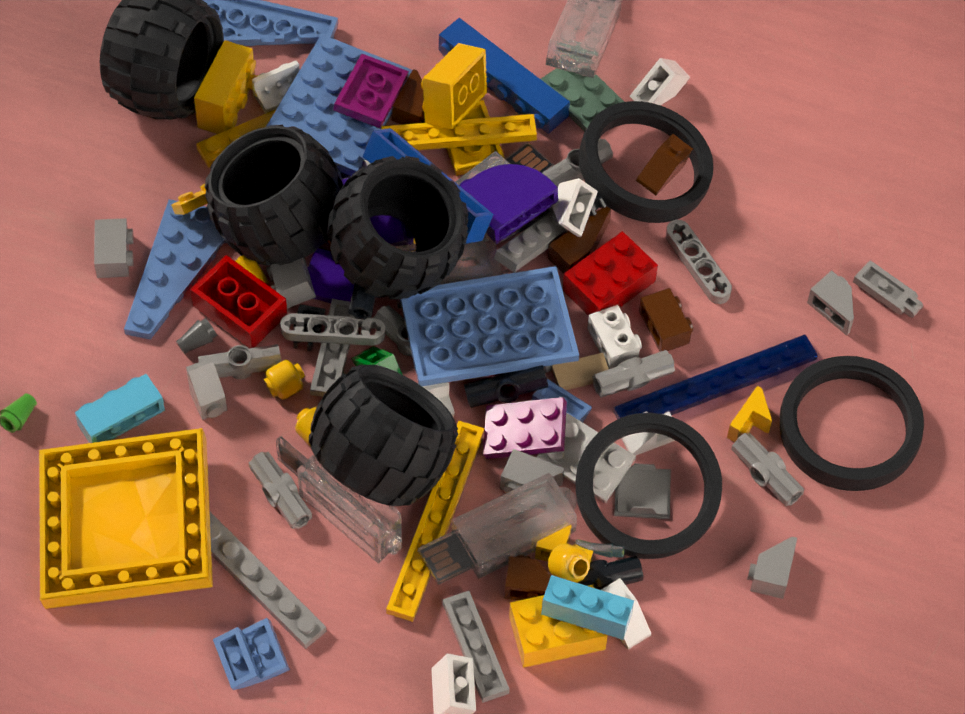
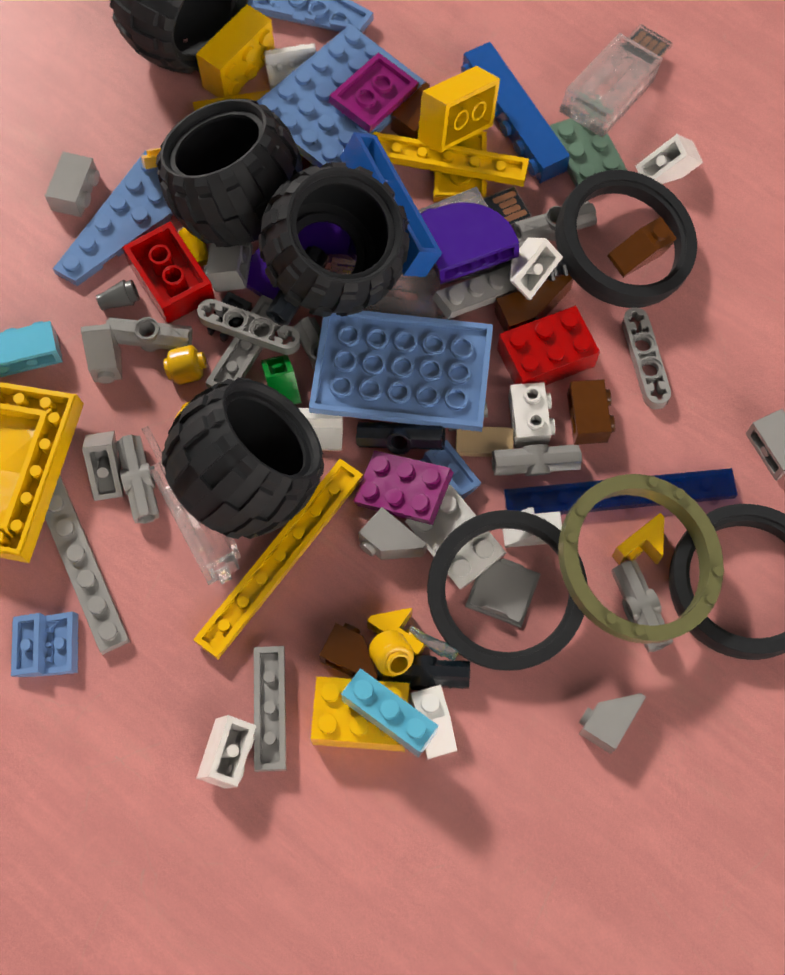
camera: 20 degrees right, 10 degrees up
(244, 487) = (103, 465): none -> light grey slope
(501, 529) = (338, 591): clear piece -> none
(788, 382) = (694, 520): none -> olive piece

